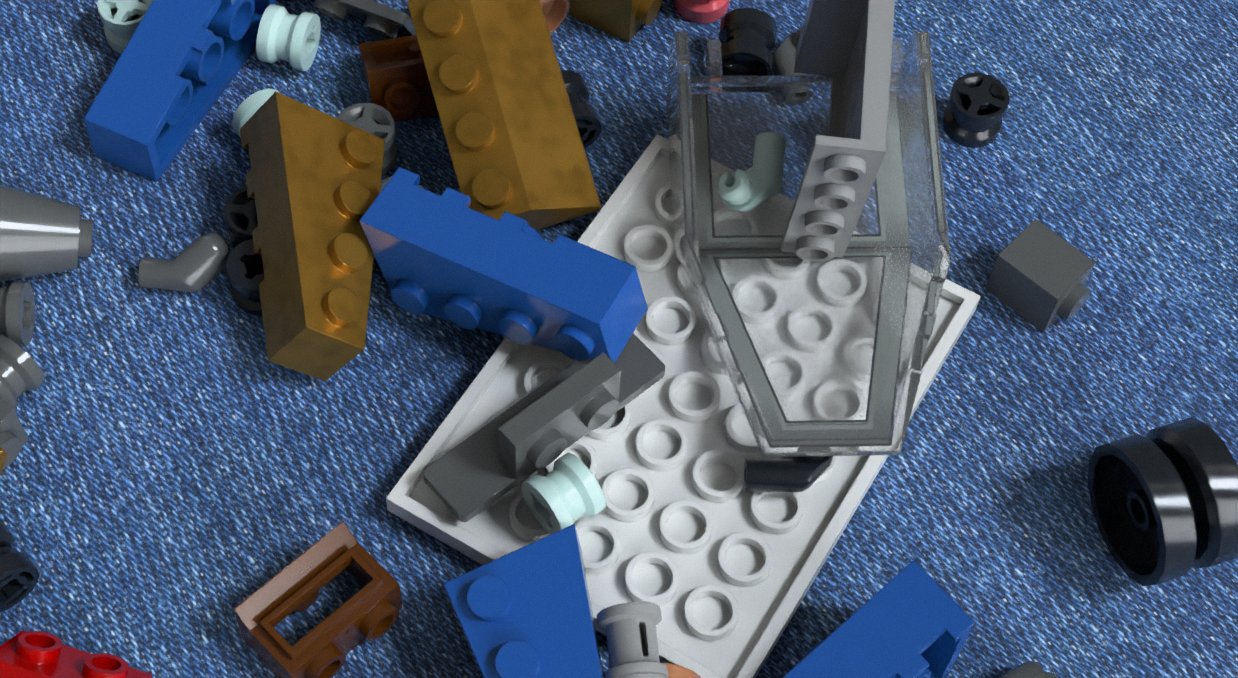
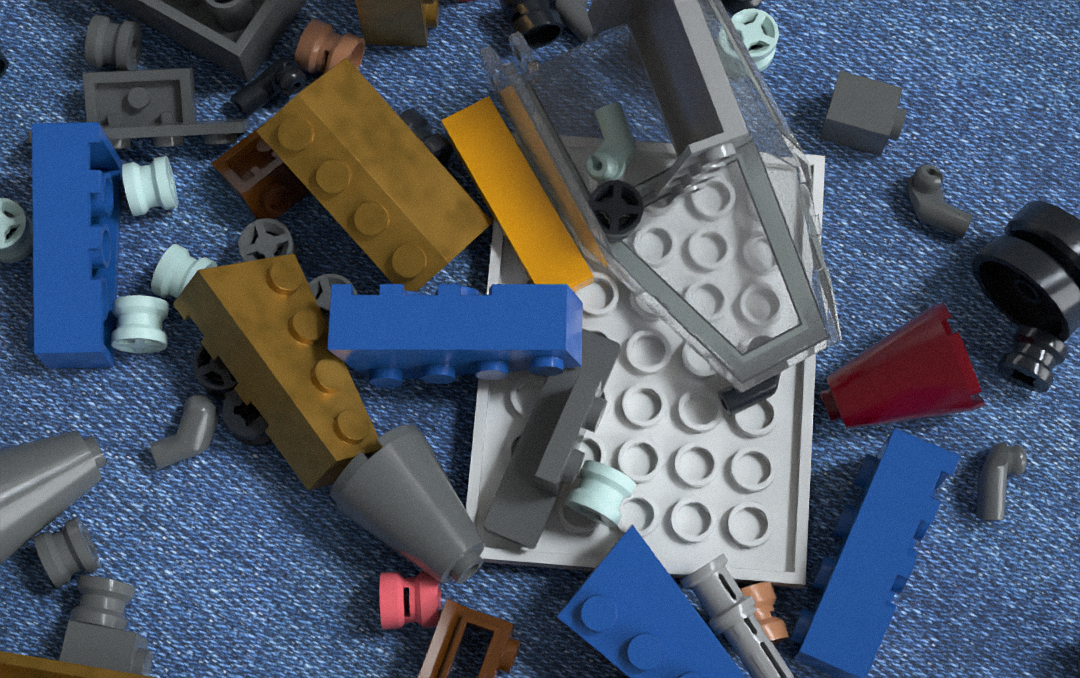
camera: 20 degrees left, 15 degrees up
(202, 147) = (139, 324): none -> light aqua wheel
(304, 513) = (423, 600): none -> coral wheel
(358, 412) = (411, 506): none -> dark grey cone
(637, 189) = (515, 197): none -> light orange tile
(726, 220) = (616, 200): none -> black wheel
(964, 536) = (906, 376): none -> dark red cone
(966, 151) = (757, 29): none -> light aqua wheel
(1074, 396) = (930, 204): none -> dark grey arm
(1114, 592) = (1033, 358): none -> black wheel

